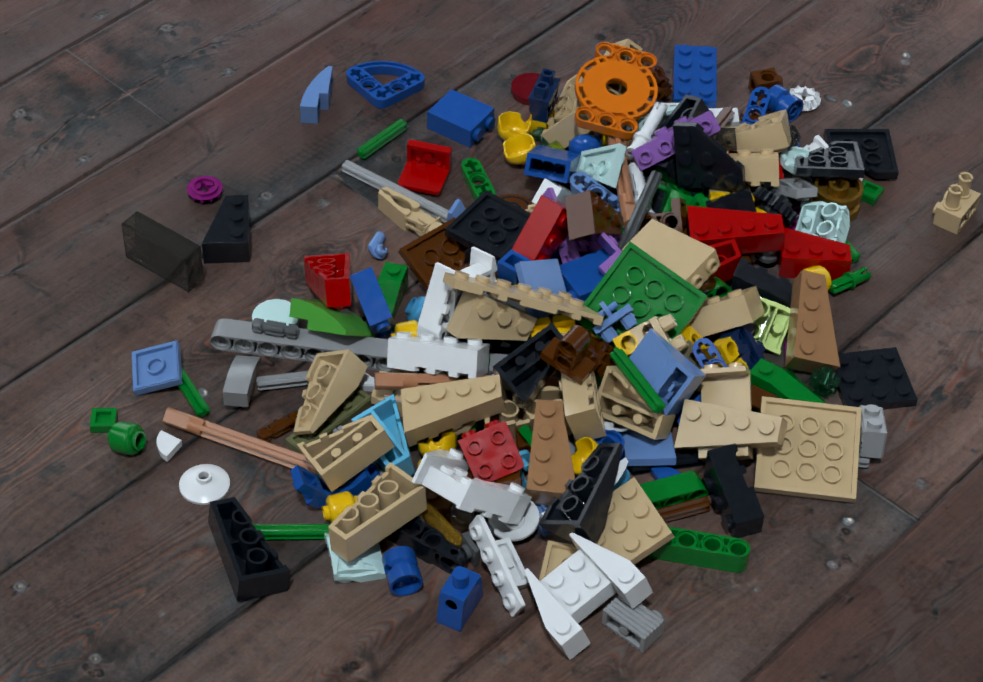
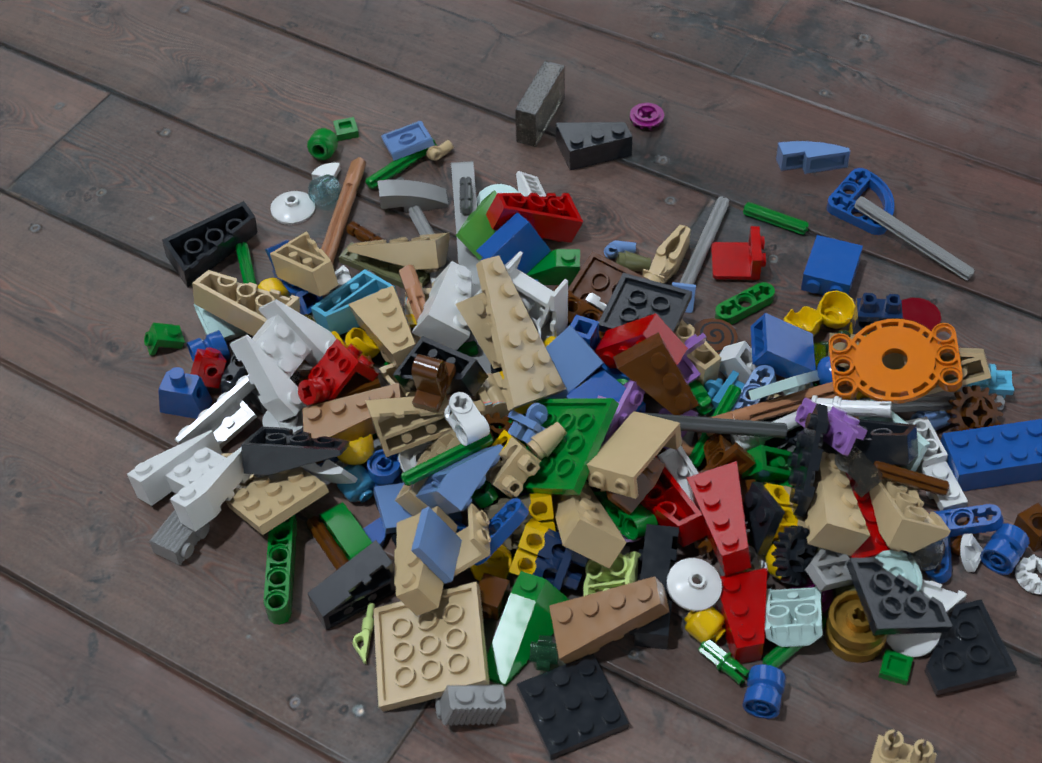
camera: 80 degrees right, 5 degrees up
(186, 350) = (436, 152): none -> tan arm
(201, 446) = (324, 190): none -> clear light blue head
(278, 289) = (529, 184): none -> white slope
(364, 614) = (163, 336): none -> green bracket
(400, 239) = (633, 261): none -> olive cone
(433, 567) = (209, 366): none -> red brick
(446, 62) = (914, 238): none -> light grey axle
(461, 261) = (594, 301): none -> white tile
(510, 467) = (313, 390): none -> red wheel
(610, 350) = (466, 419): none -> white piece
(642, 306) = (546, 440): none -> tan cone
(732, 401) = (436, 545): none -> medium blue tile
(780, 504) = (365, 635): none -> yellowish green hand
(788, 265) = (691, 595): none -> white dish
(884, 261) = (764, 691): none -> blue wheel

